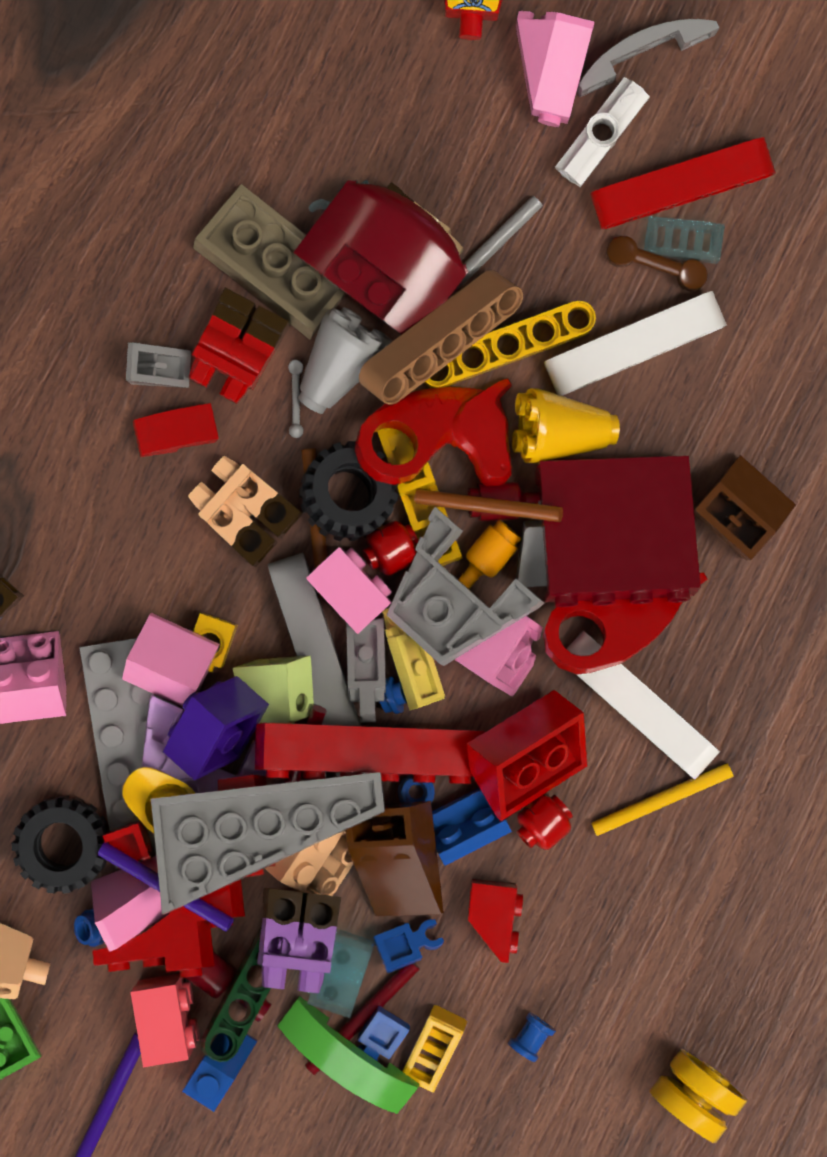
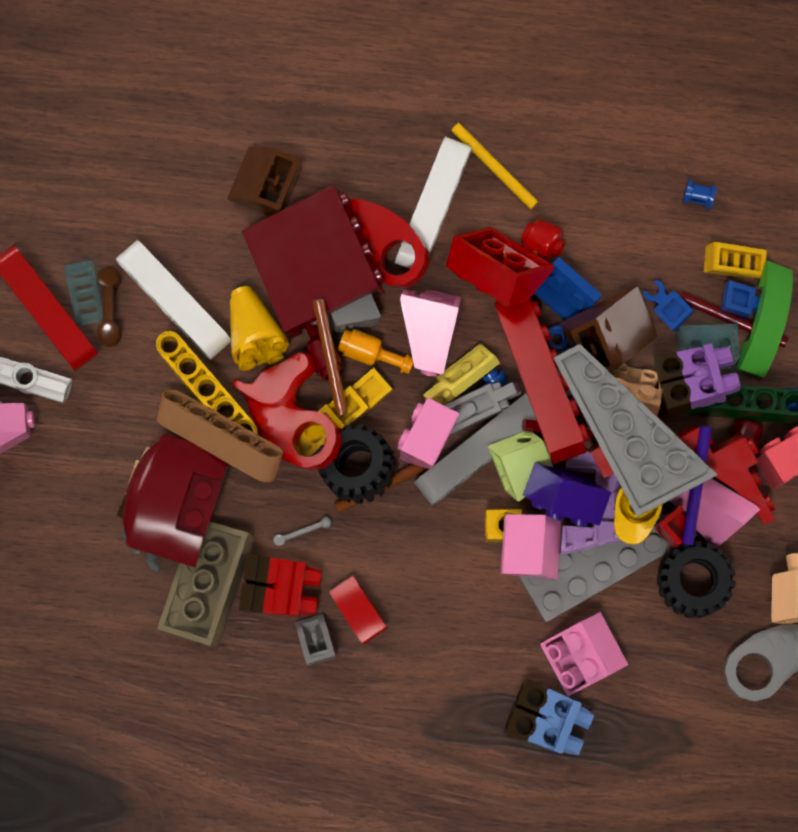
camera: 115 degrees left, 10 degrees down
(86, 929) = (748, 537): blue plate -> none
(236, 501) = (397, 545): light nougat hips -> none
(337, 358) = (261, 506): light grey cone -> none
(391, 548) = (386, 418): red head -> none
(441, 609) = (419, 360): light grey wing -> none
(492, 915) = (621, 252): red slope -> none
(500, 237) = (125, 423): light grey bar -> none
(695, 1099) = (691, 62): yellow wheel -> none

